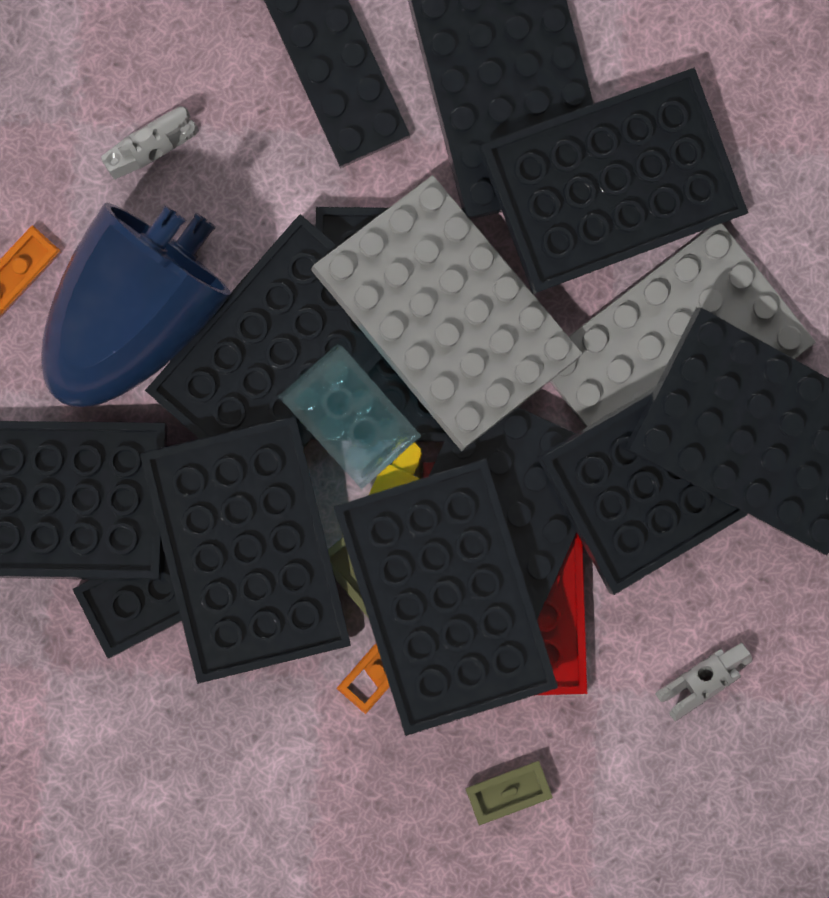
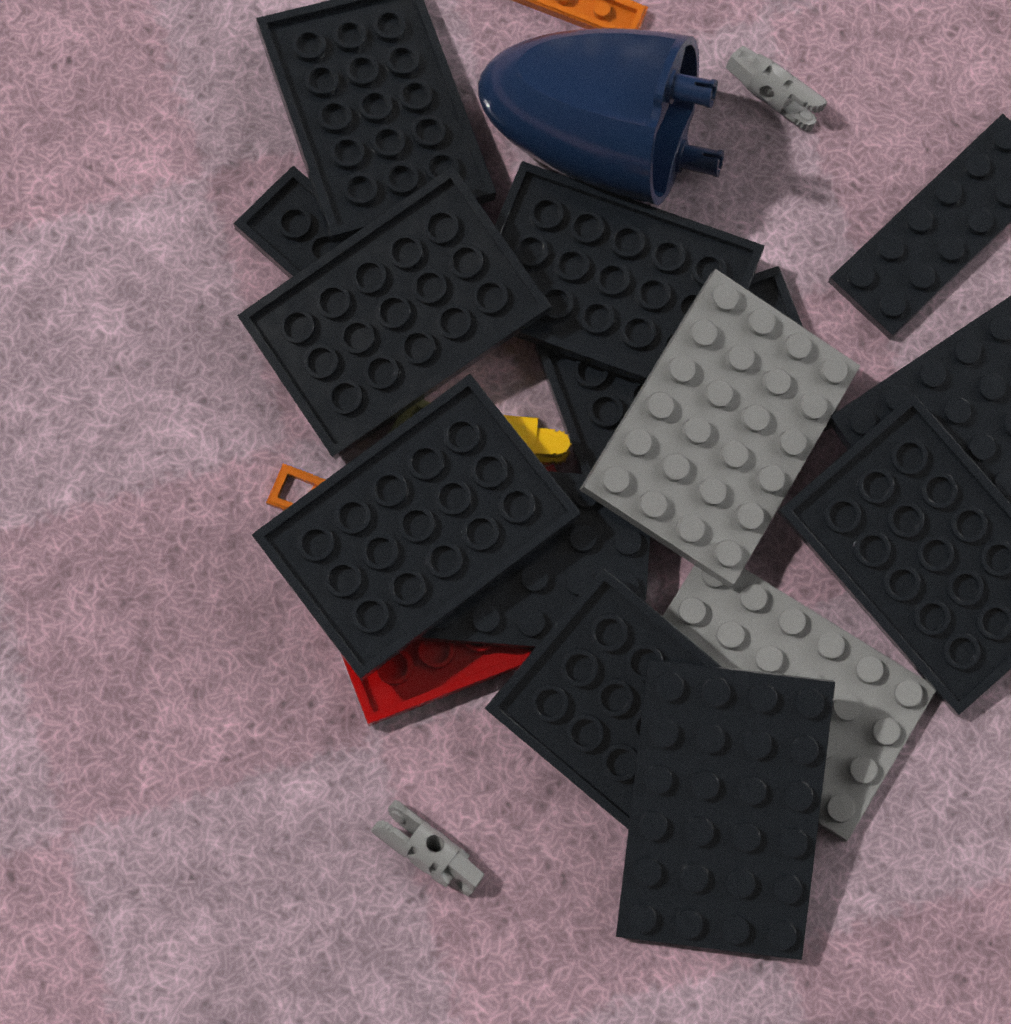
camera: 65 degrees right, 10 degrees down
(349, 416) = (572, 358): clear light blue brick -> none
(508, 792) = (232, 679): olive plate -> none

